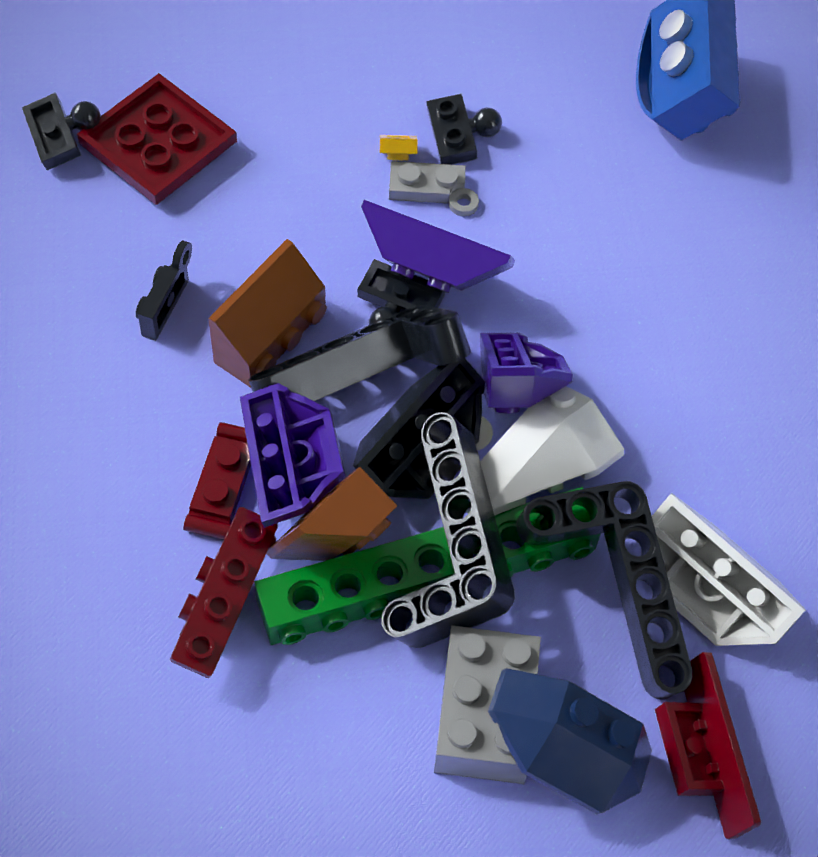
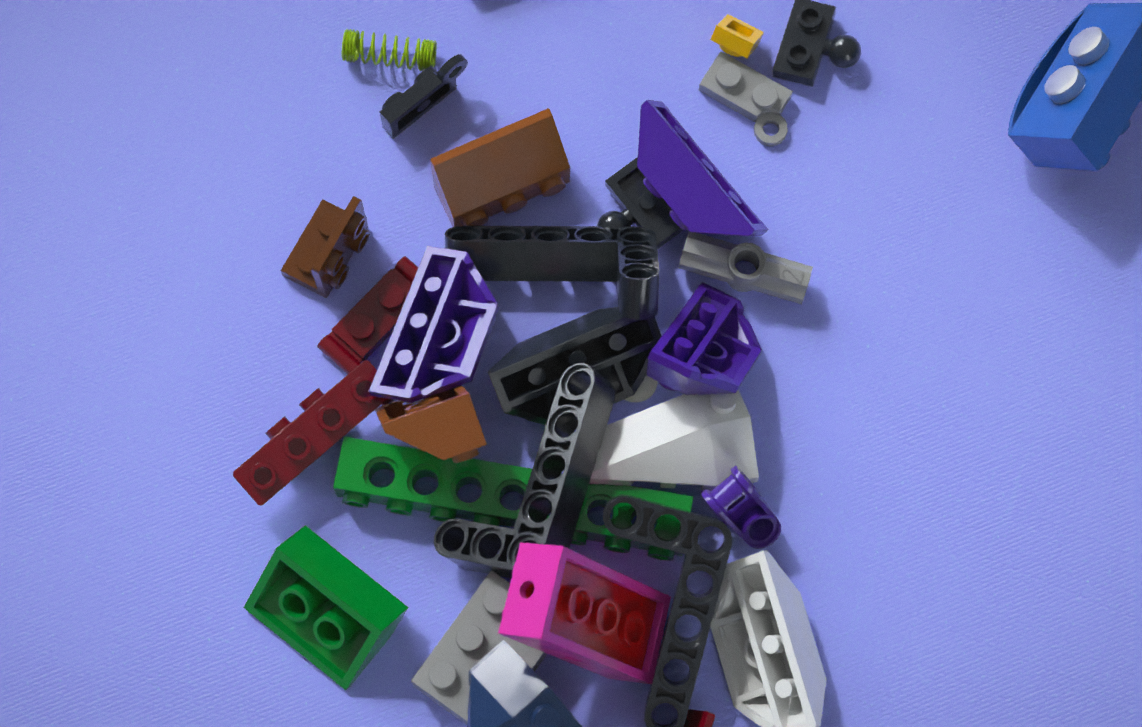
camera: 30 degrees right, 15 degrees up
(81, 280) = (353, 47): none -> lime piece
(148, 442) = (327, 246): none -> reddish brown bracket
(315, 740) = (324, 606): none -> green slope
(528, 301) = (772, 275): none -> light grey piece
(557, 611) = (584, 613): none -> brick
(625, 463) = (744, 509): none -> dark purple piece

